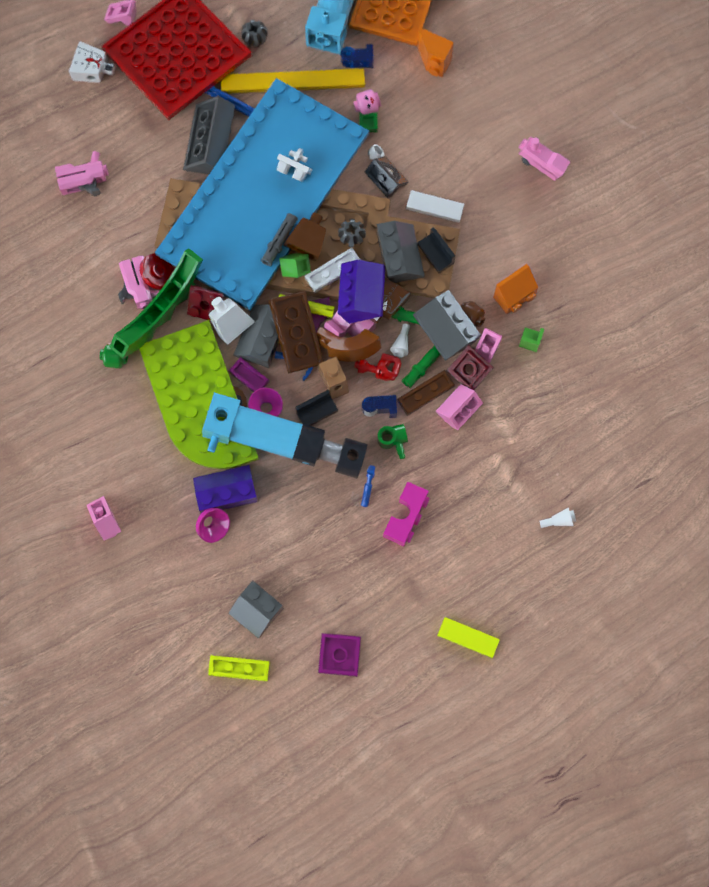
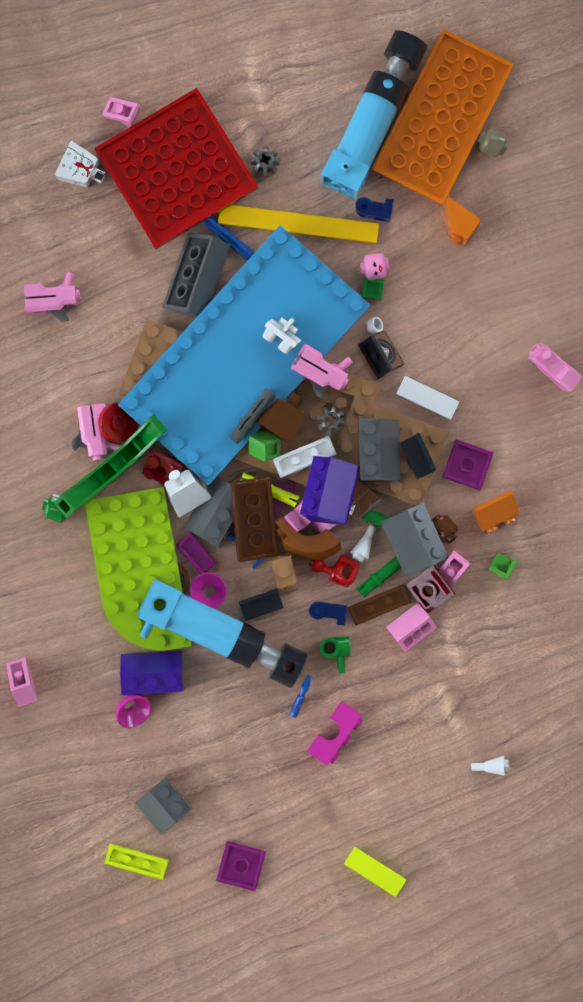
camera: 10 degrees right, 10 degrees up
(333, 191) = (320, 372): none -> bright pink piece
(482, 257) = (467, 465): none -> magenta tile

